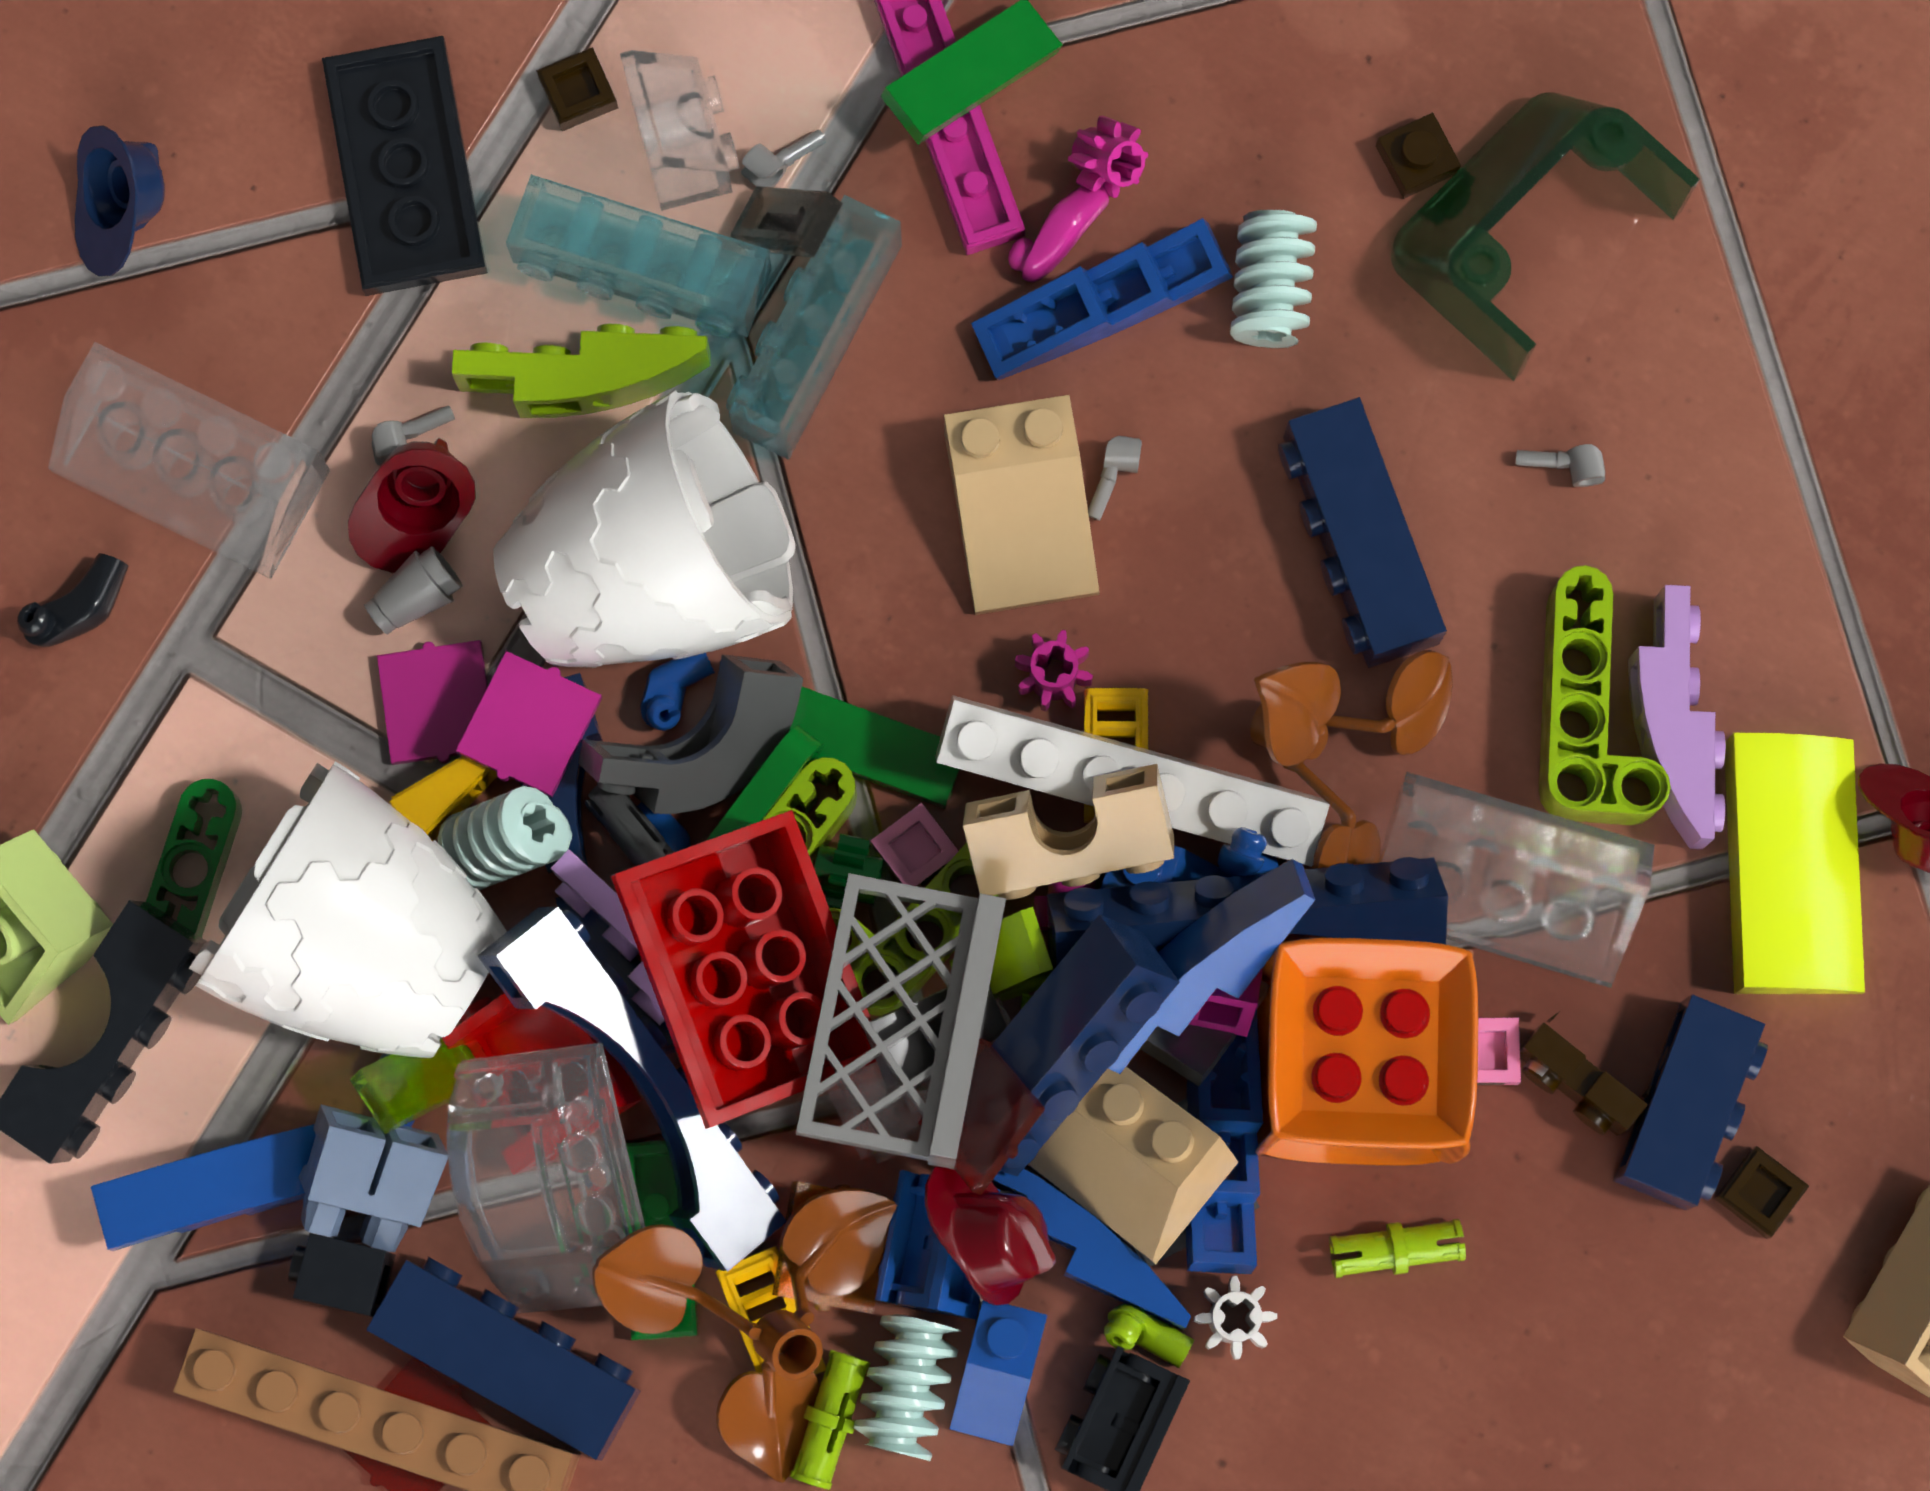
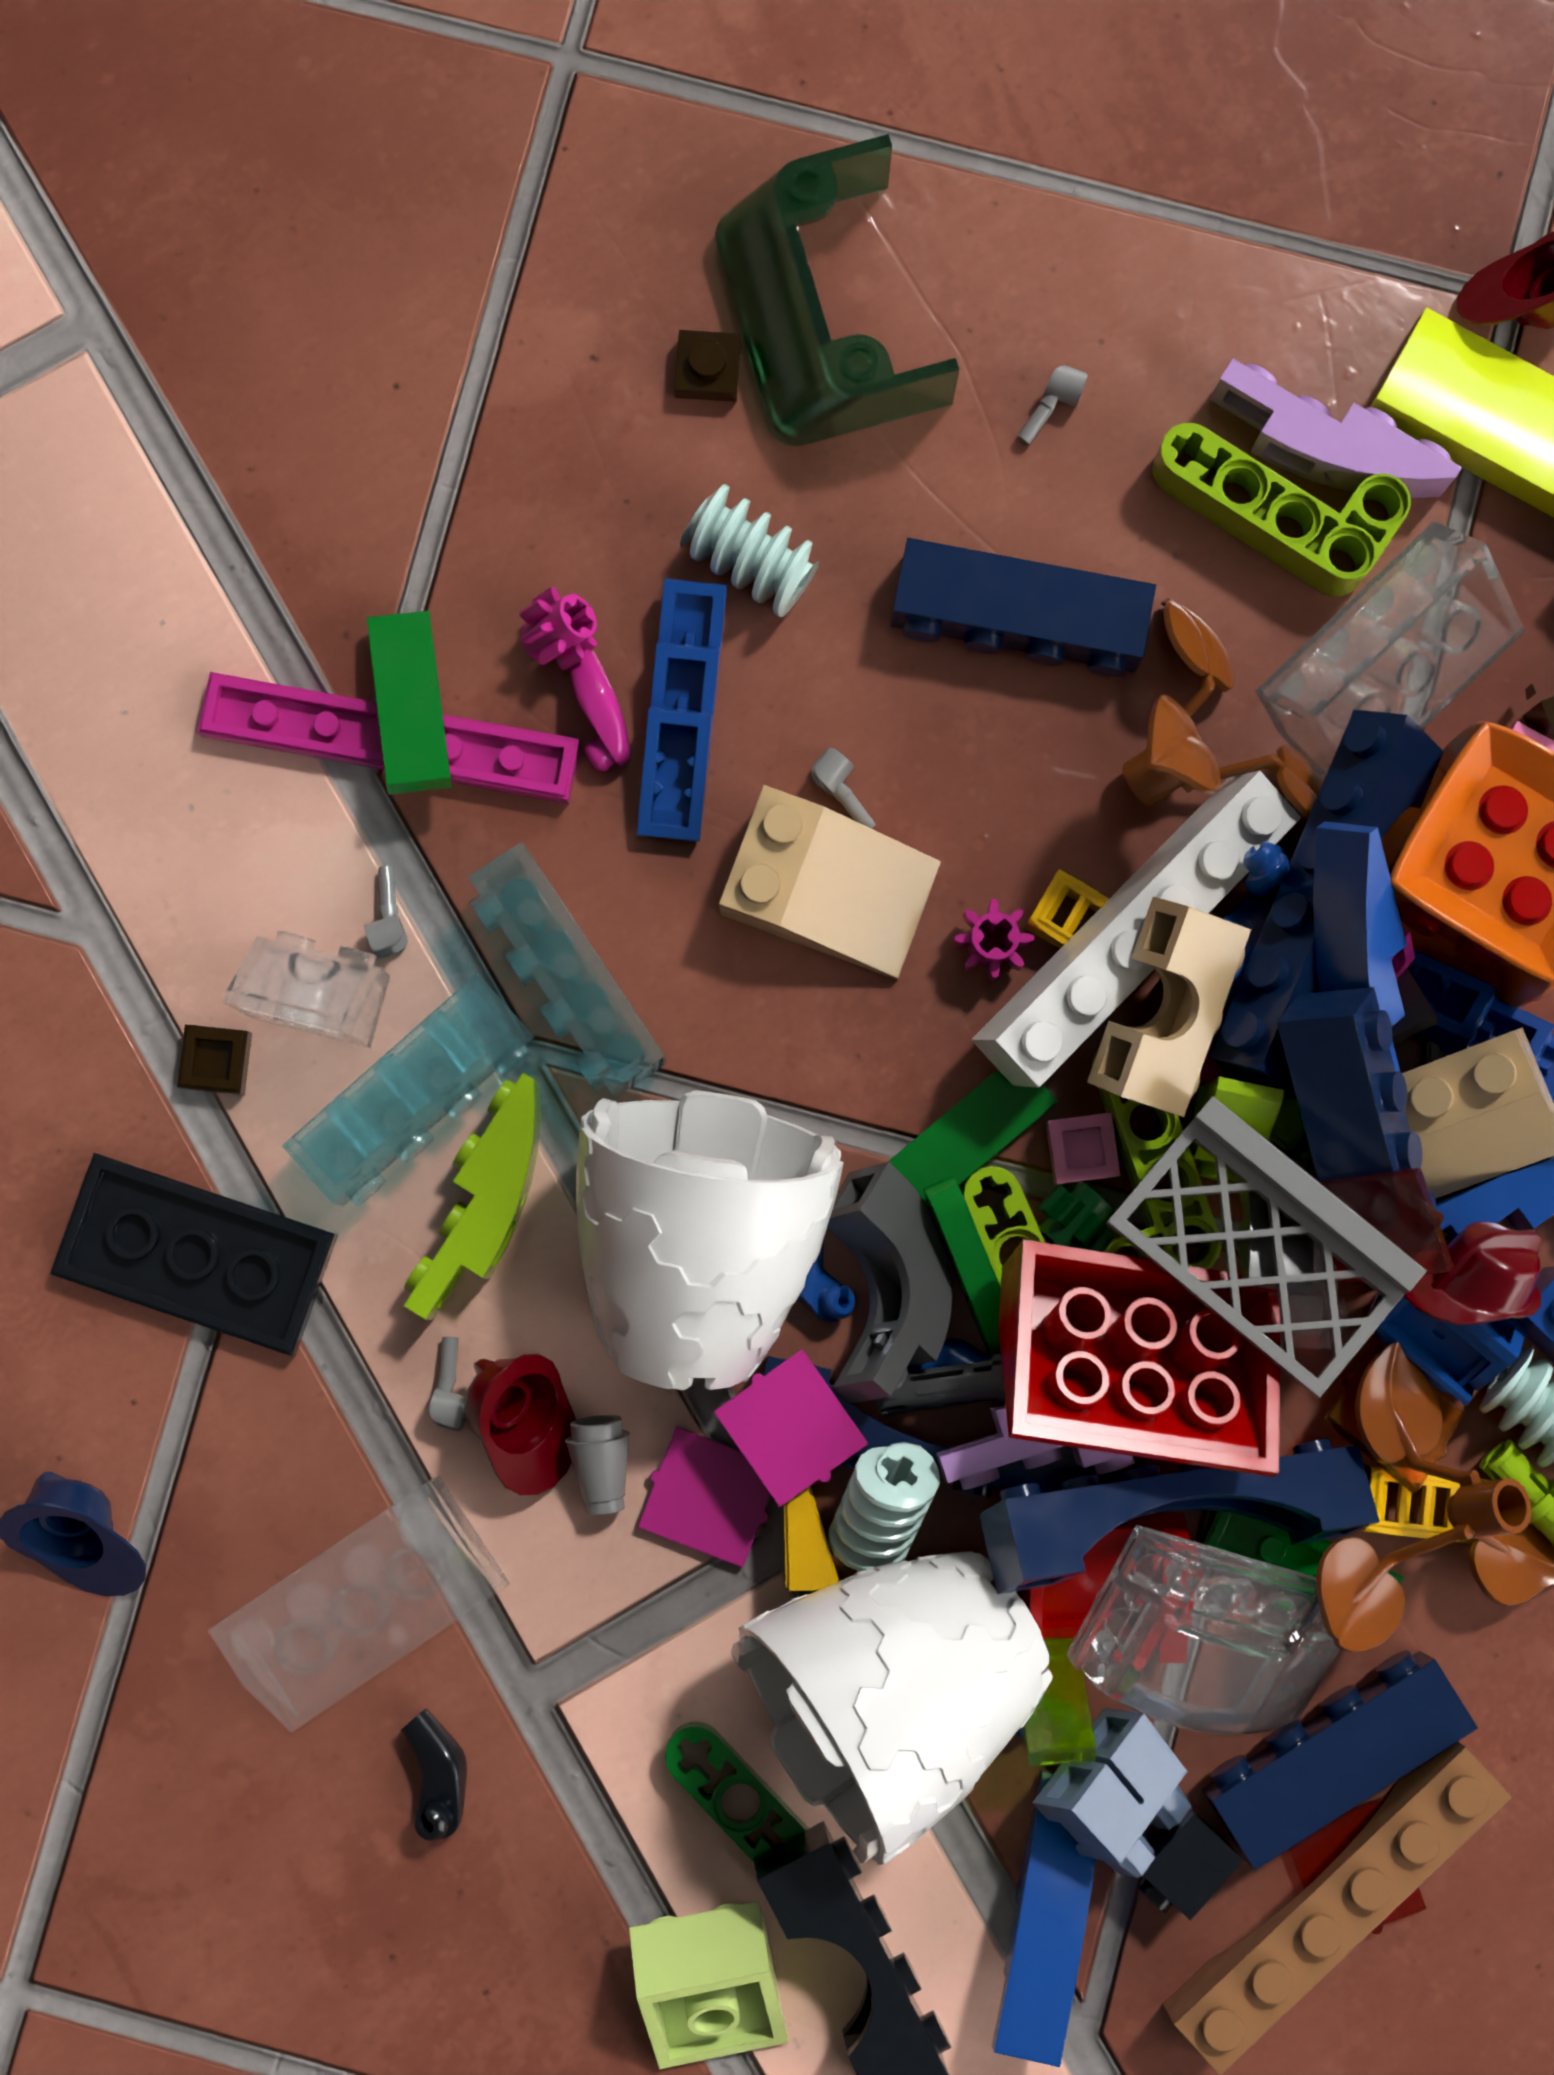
camera: 60 degrees left, 5 degrees up
(787, 220) = (455, 942): clear smoke tile -> none

